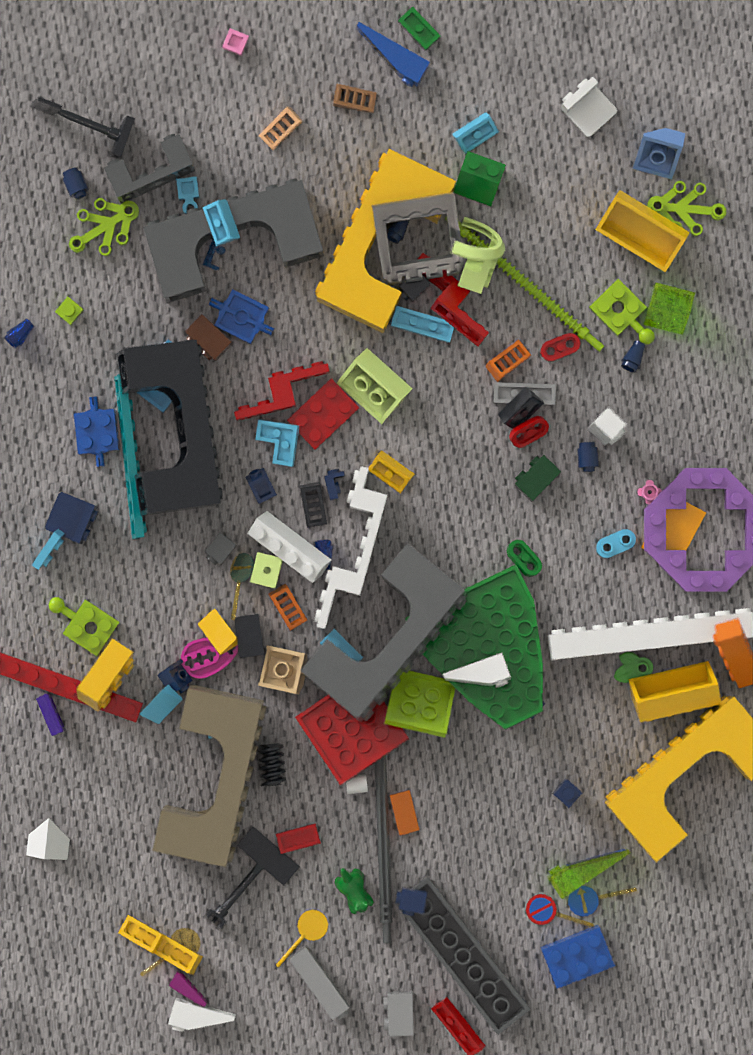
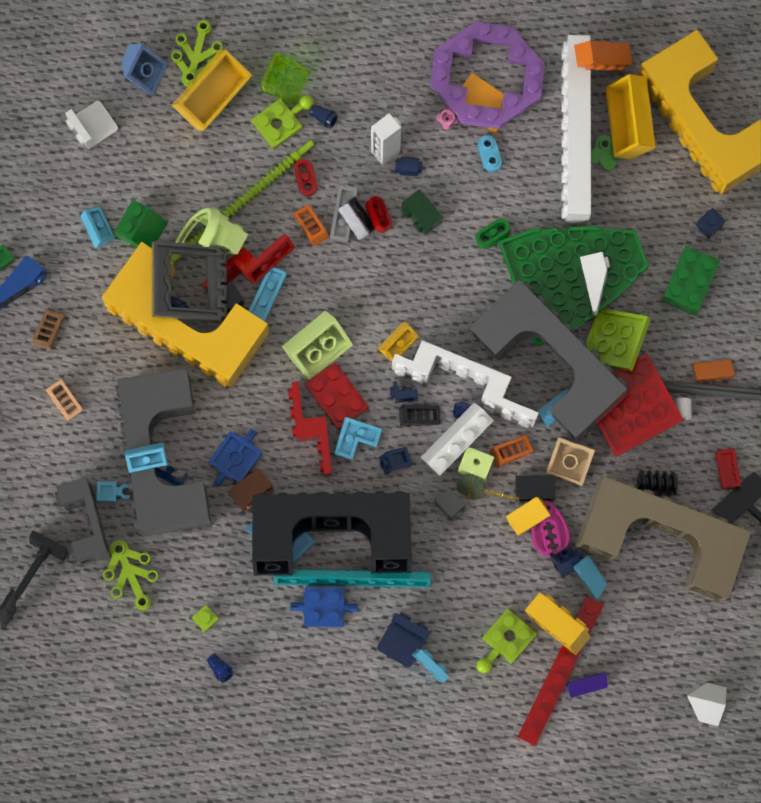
camera: 85 degrees left, 10 degrees down
(75, 183) = (85, 596): dark blue brick -> none
(499, 777) = (690, 280): none -> green brick

